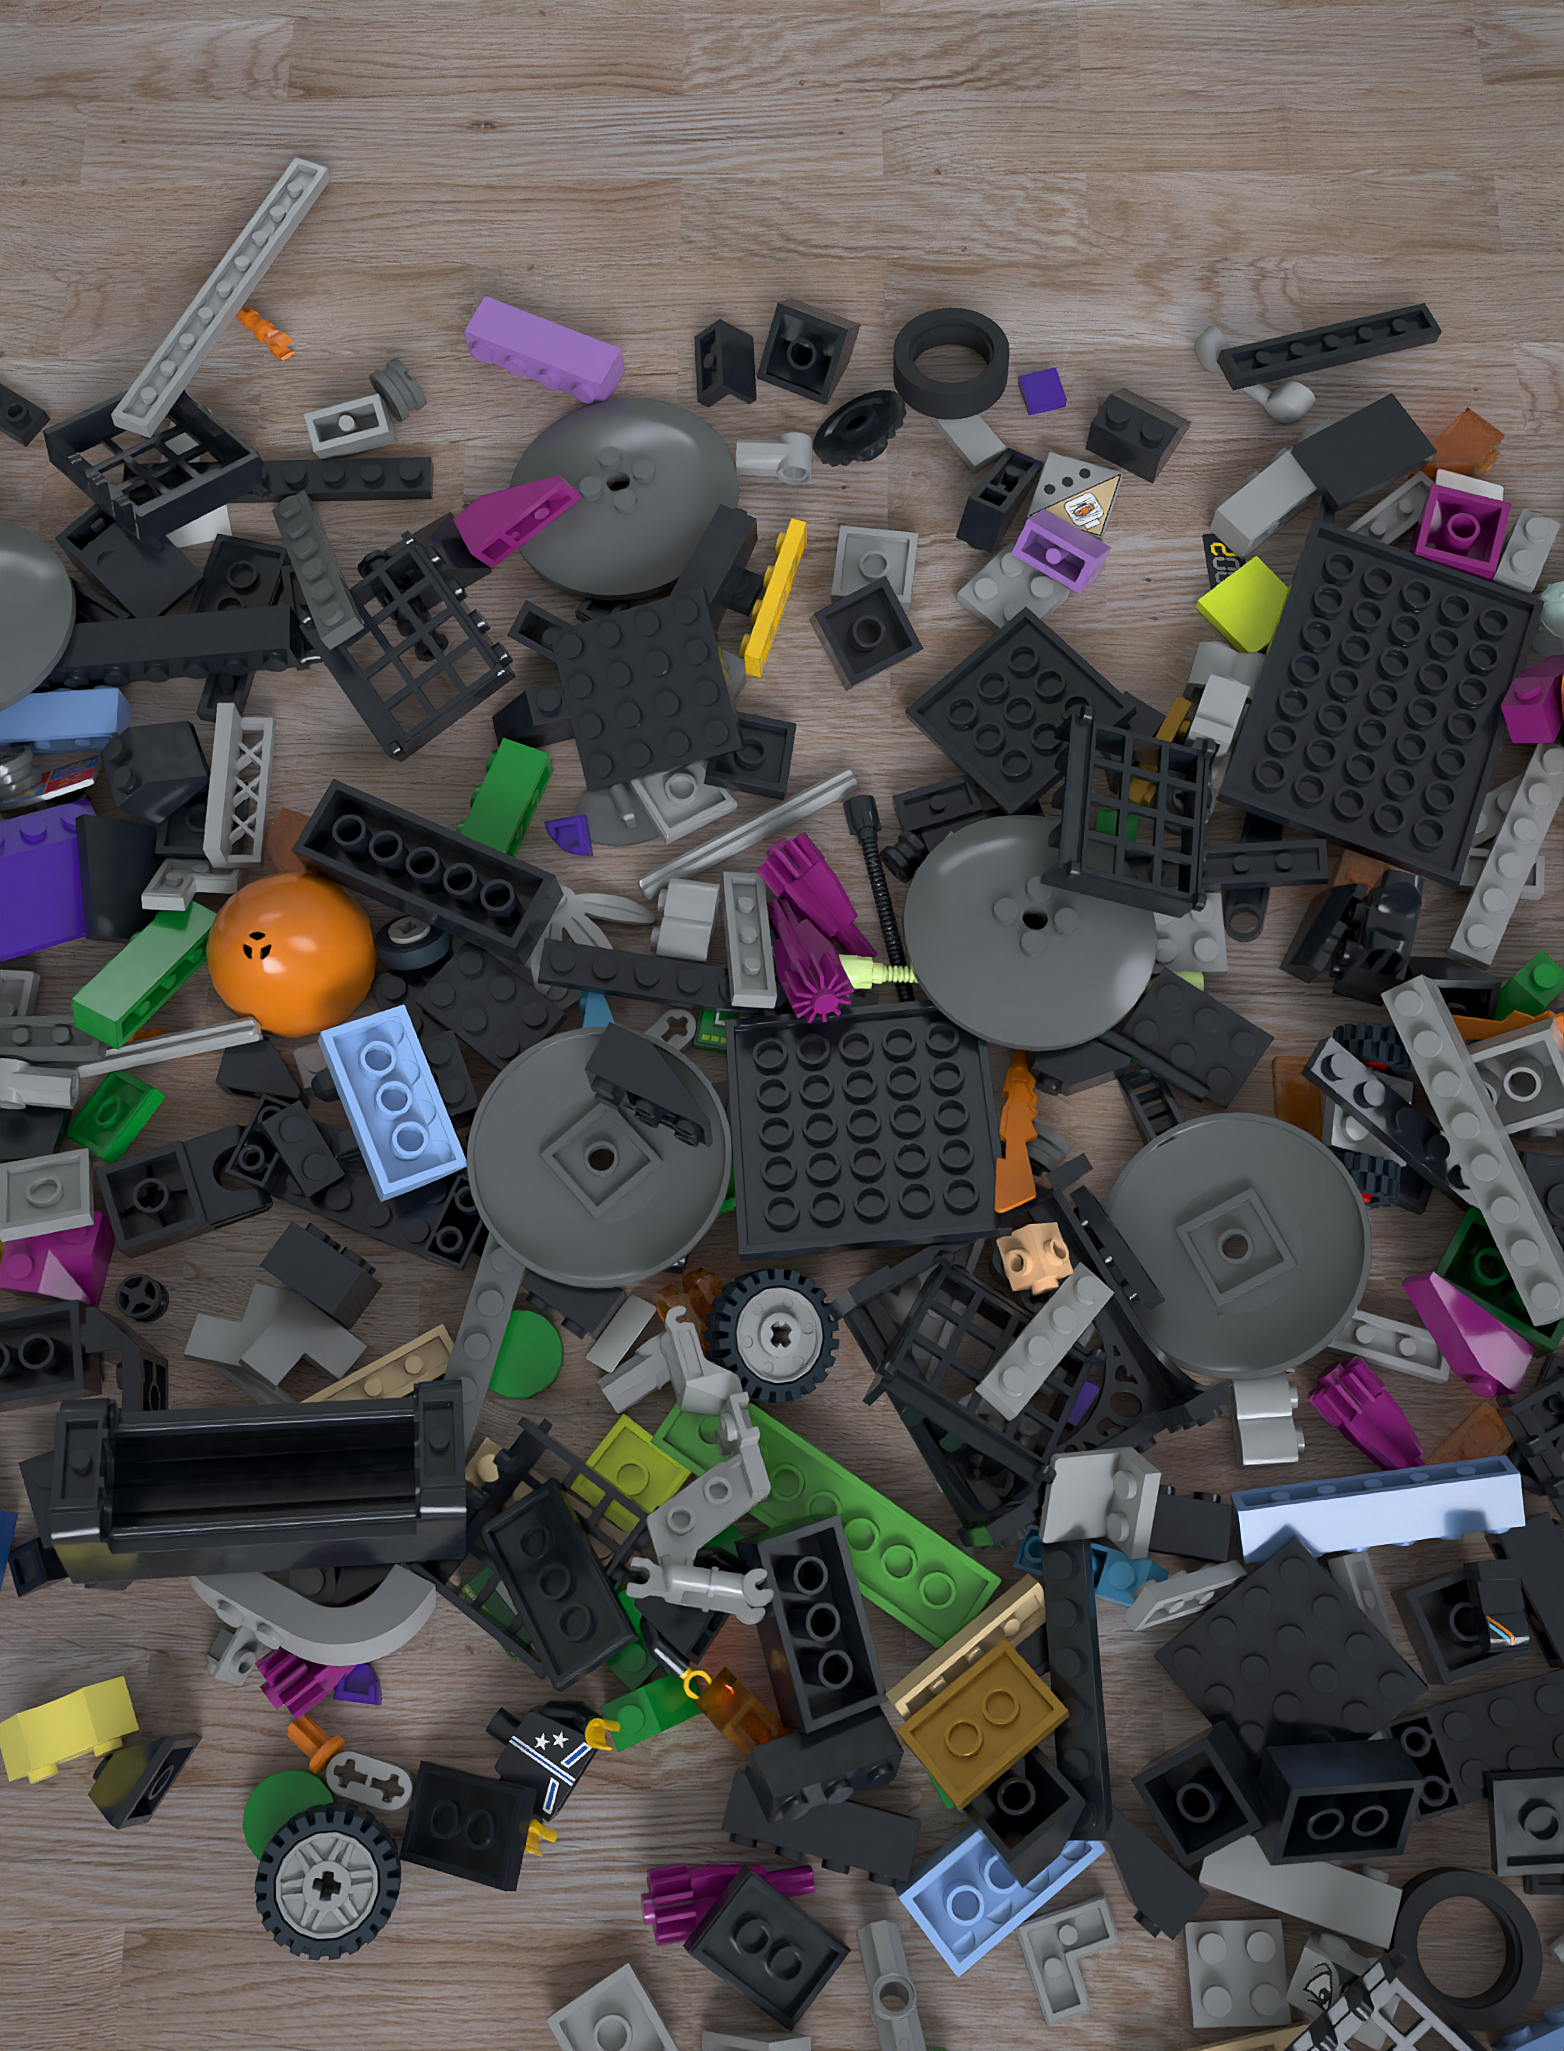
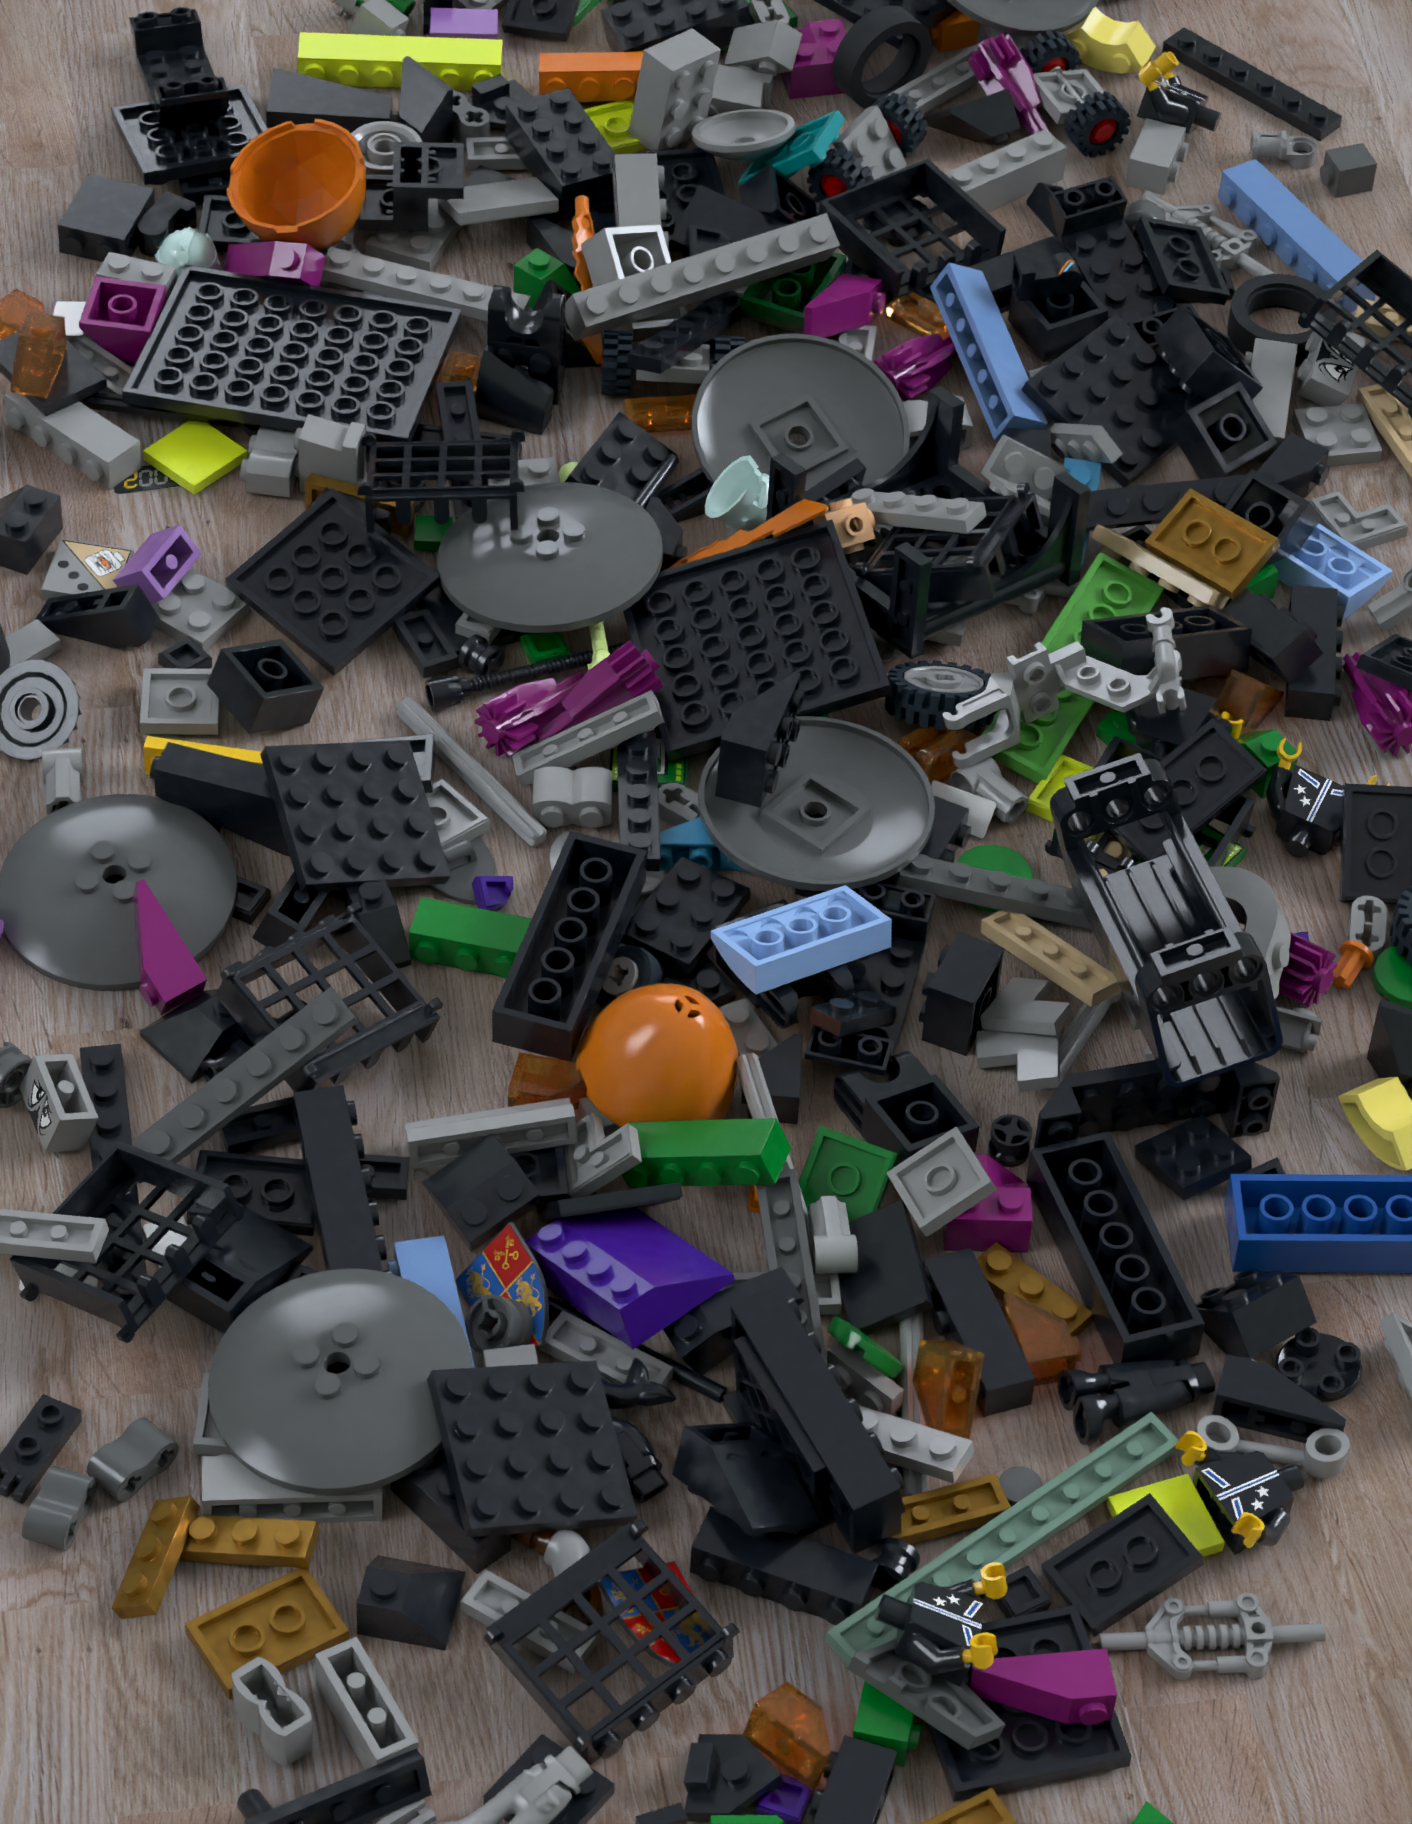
camera: 105 degrees left, 25 degrees down
(940, 580) = (185, 655): none -> black tile
(1116, 1151) = (739, 495): none -> light aqua helmet
(1359, 431) = (38, 354): none -> clear orange slope

